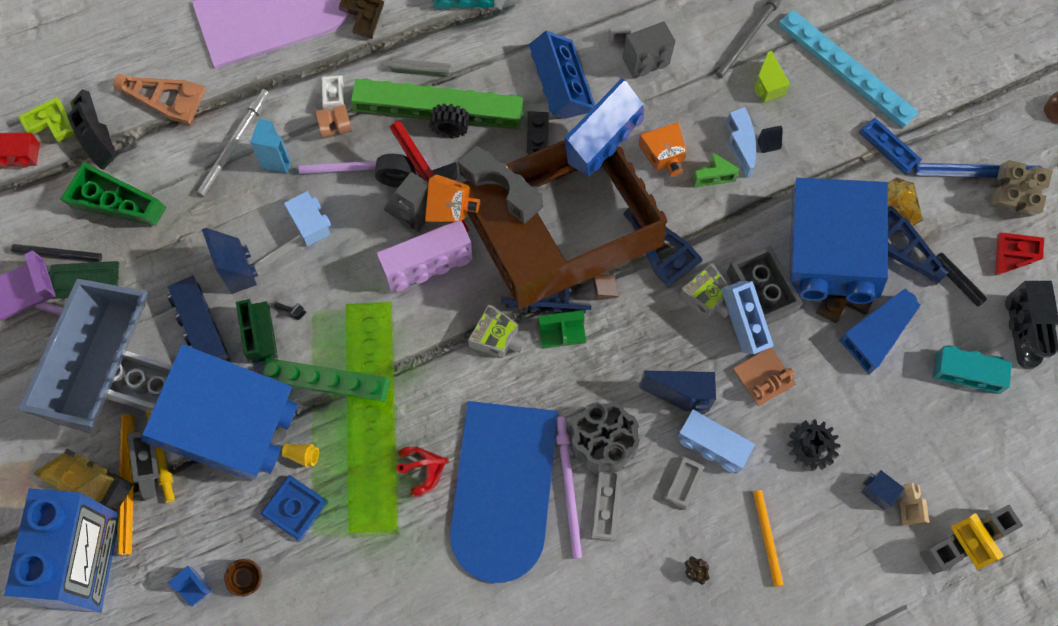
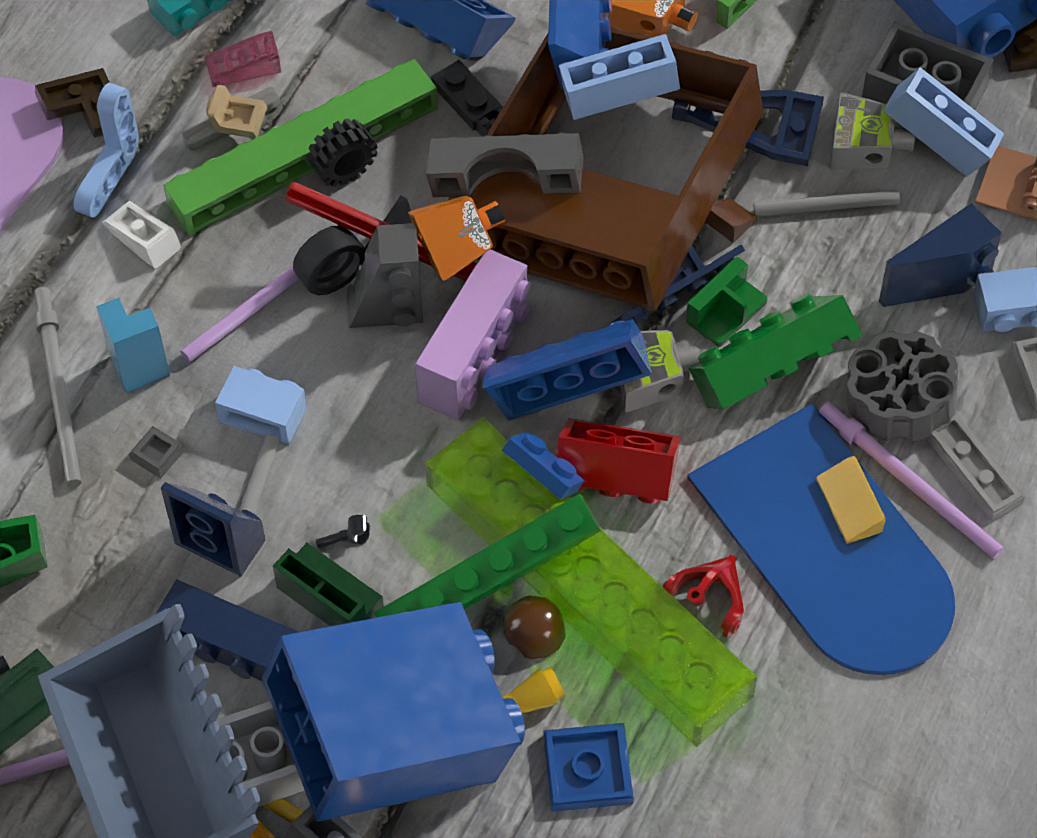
camera: 35 degrees left, 10 degrees down
(247, 206) = (156, 452): none -> dark grey tile
(330, 421) = (534, 626): none -> reddish brown hair
(333, 121) = (183, 256): nougat wheel -> none
(348, 50) = (120, 146): none -> light blue beam
(394, 347) = (552, 472): none -> blue plate
(418, 66) = (235, 114): none -> tan bracket
(439, 368) = (620, 459): none -> red slope
(450, 307) = (568, 370): none -> blue slope
(455, 50) = (252, 47): none -> clear pink slope
(528, 475) = (851, 500): none -> yellow slope
(557, 370) = (773, 348): none -> green wedge
(591, 178) = (619, 76): none -> light blue brick
(662, 316) = (826, 203): none -> light grey bar

